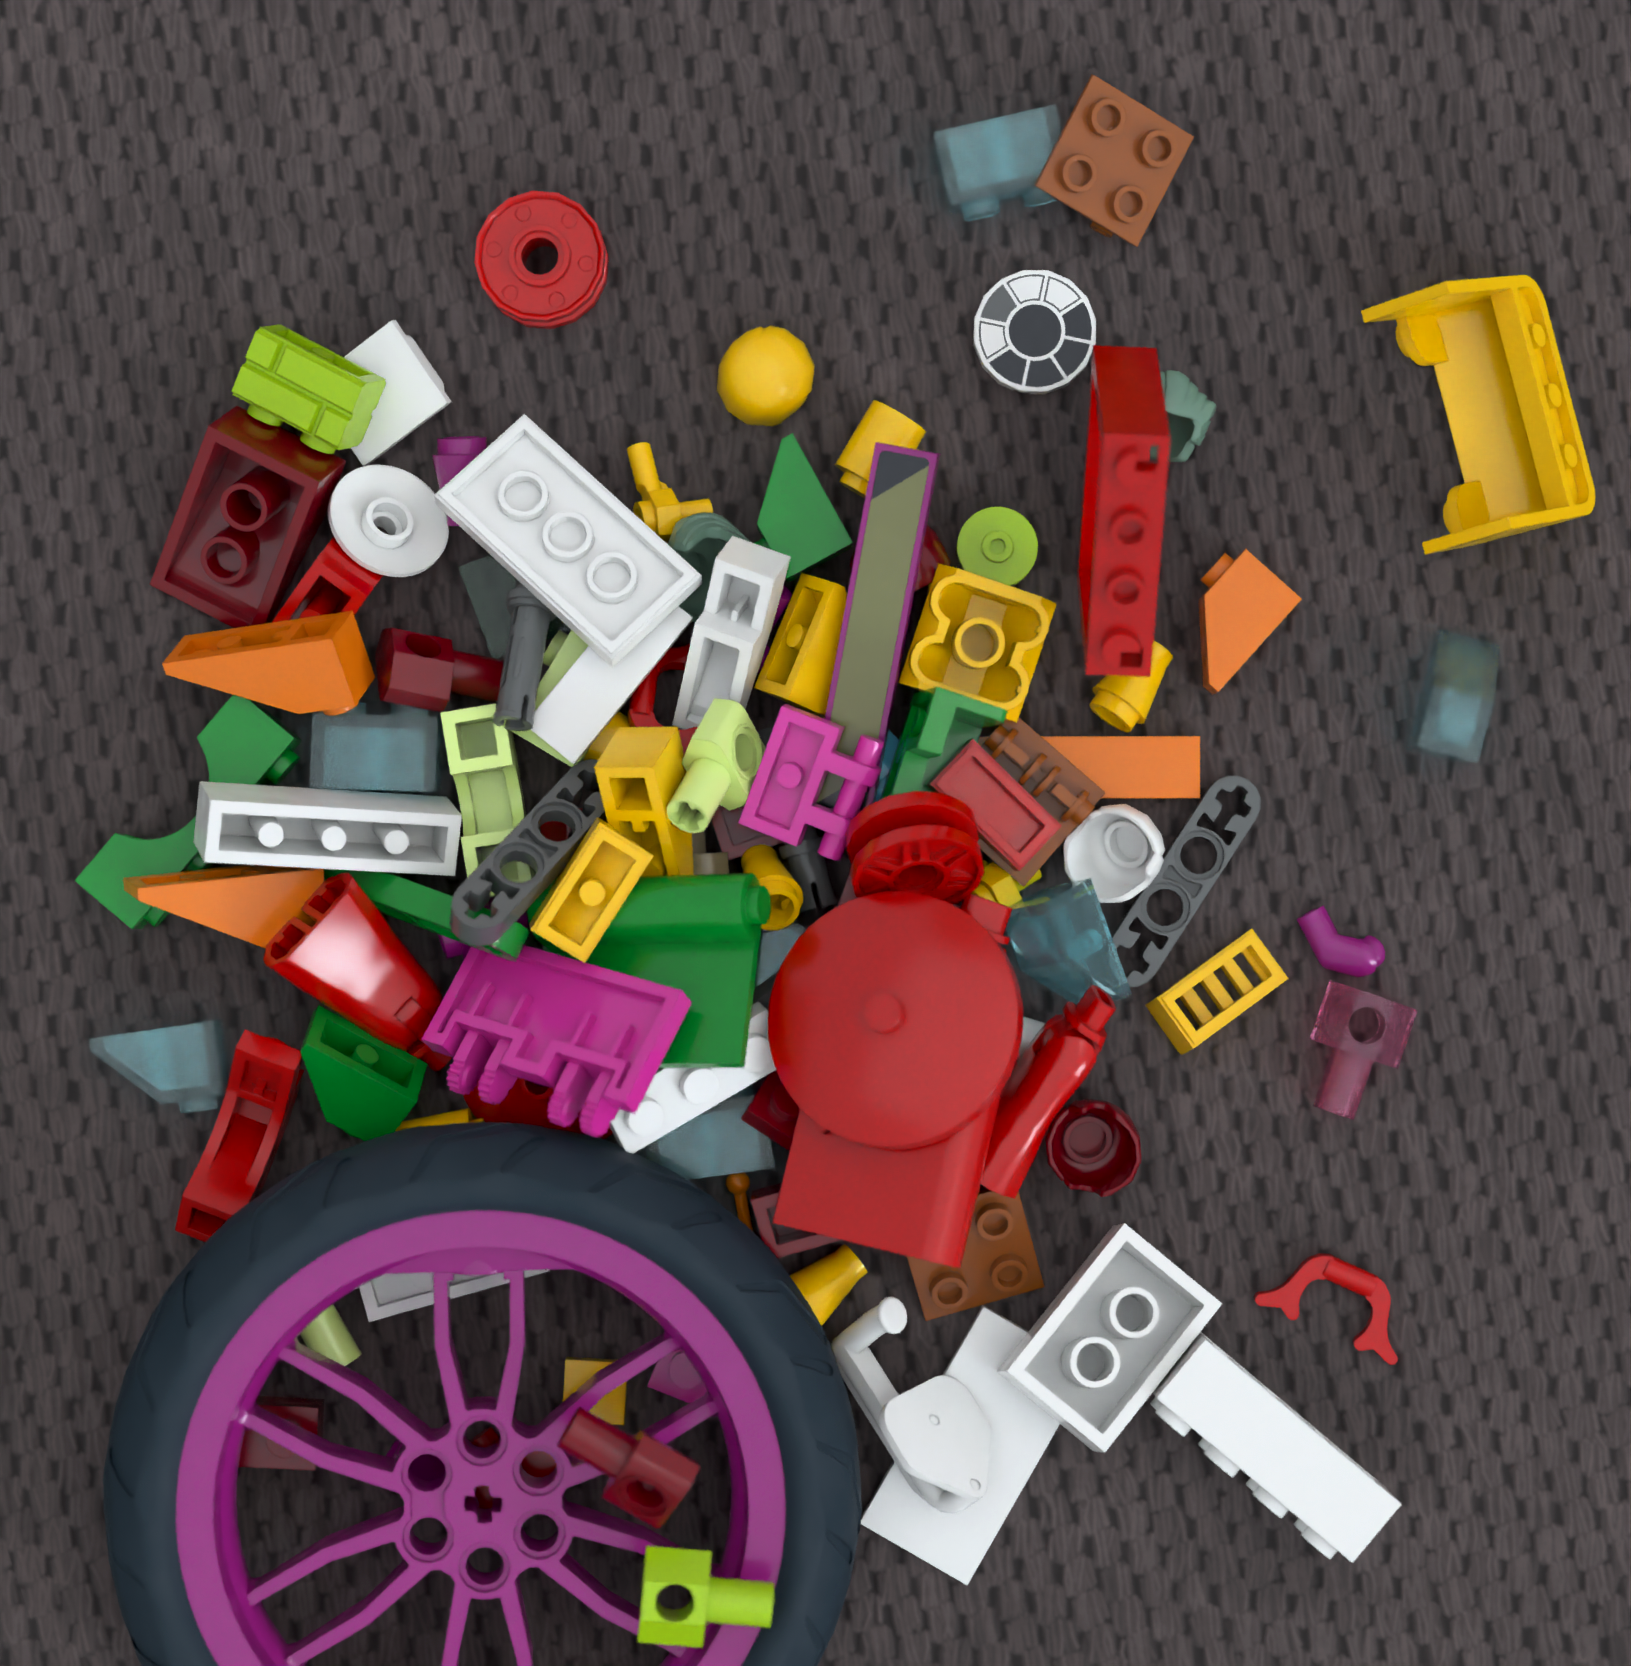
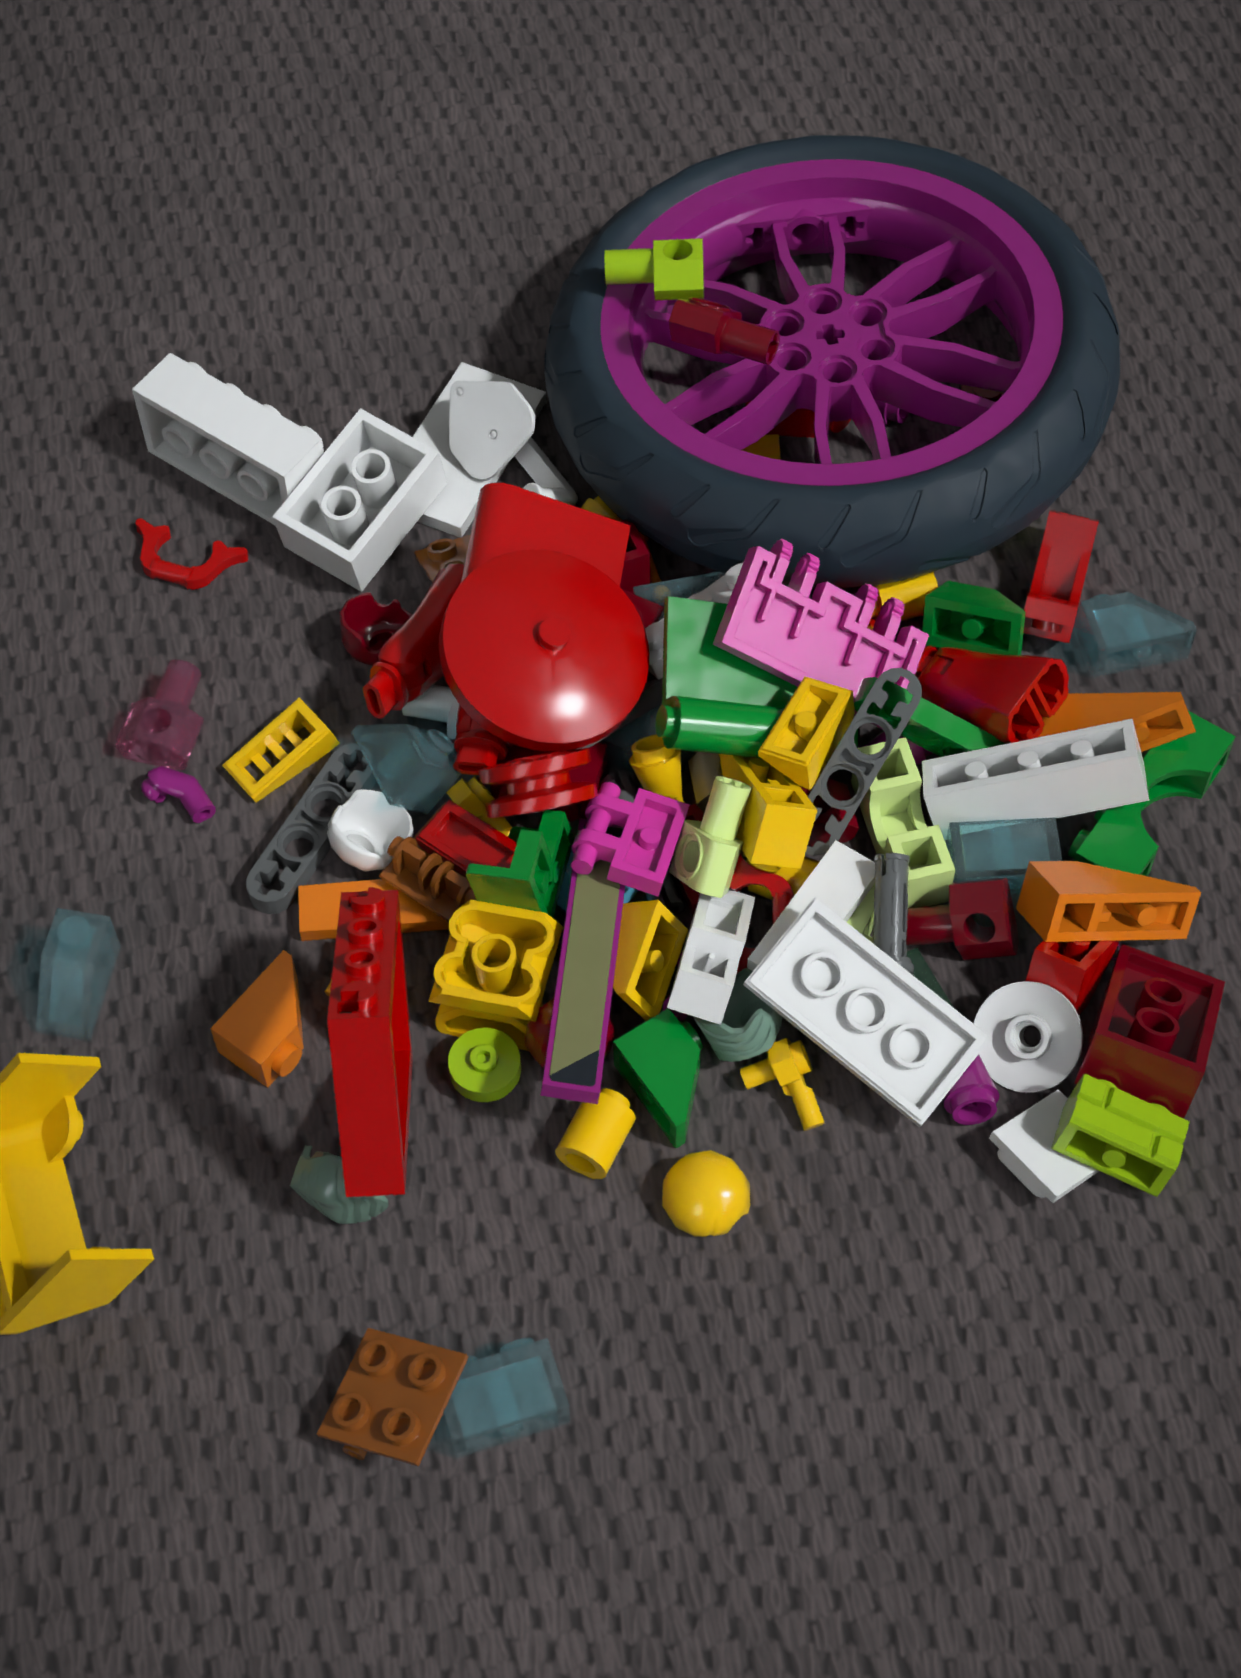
camera: 175 degrees right, 30 degrees down
(520, 228) = (938, 1239): red wheel -> none
(1034, 331) = (461, 1254): tile -> none

